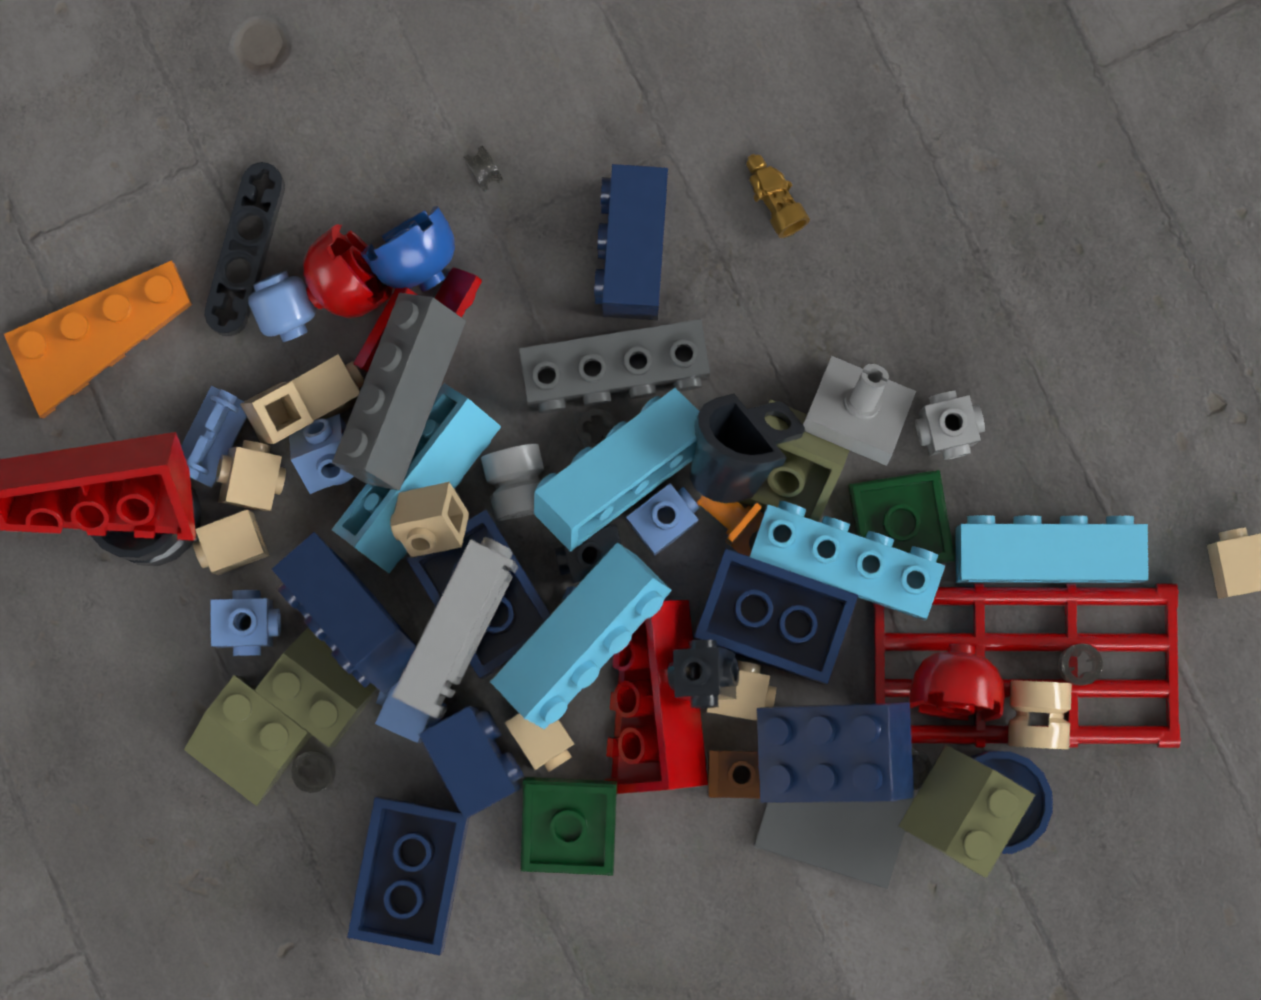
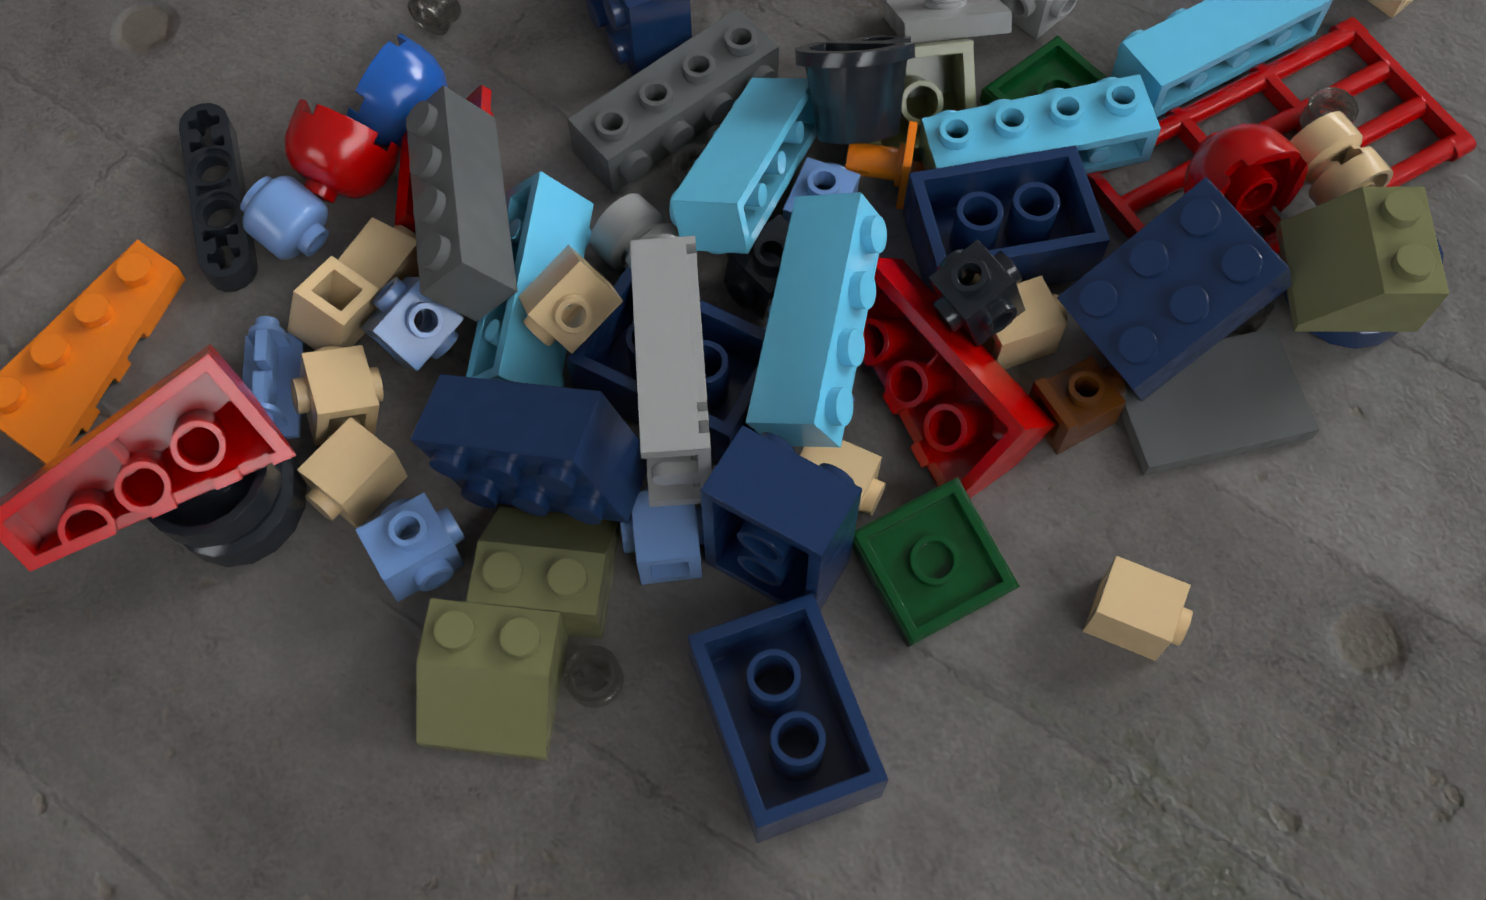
camera: 30 degrees left, 20 degrees down
(676, 936) = (1139, 609): none -> tan brick

